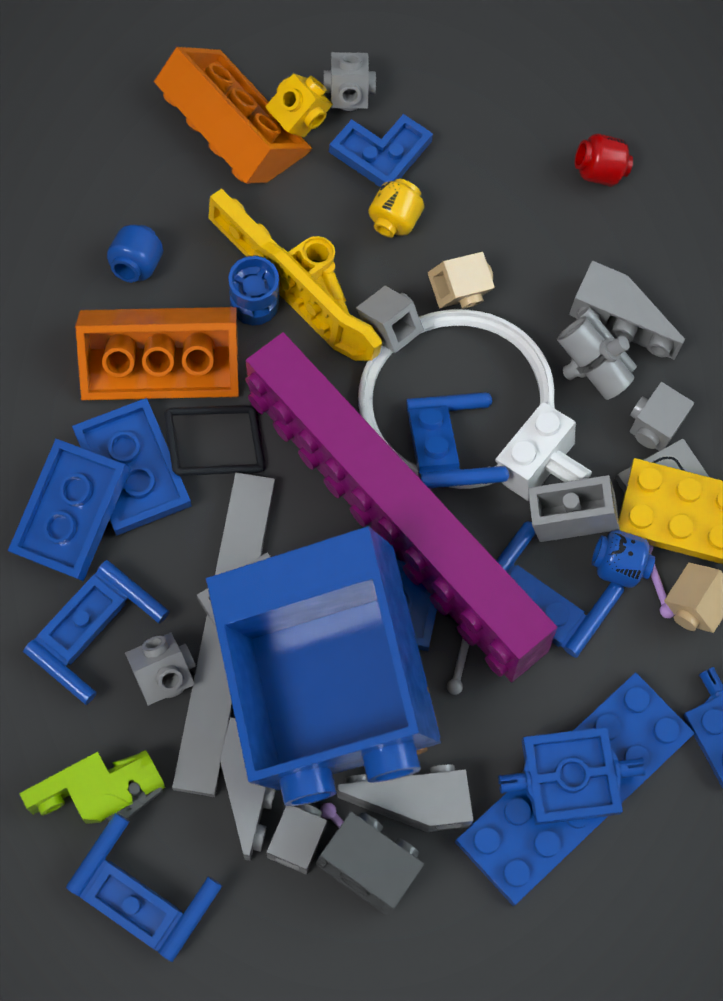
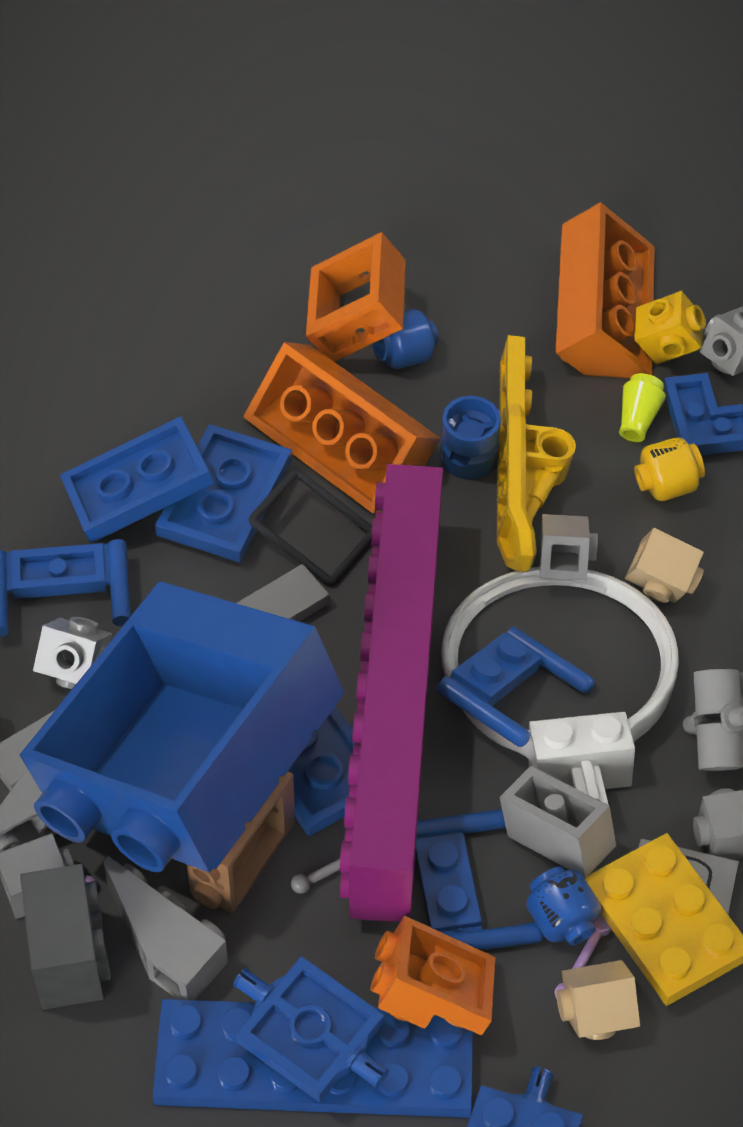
camera: 50 degrees right, 15 degrees down
(107, 267) = (379, 313): none -> orange window
(330, 175) = (640, 405): none -> neon yellow cone
(604, 675) = (433, 975): none -> orange plate

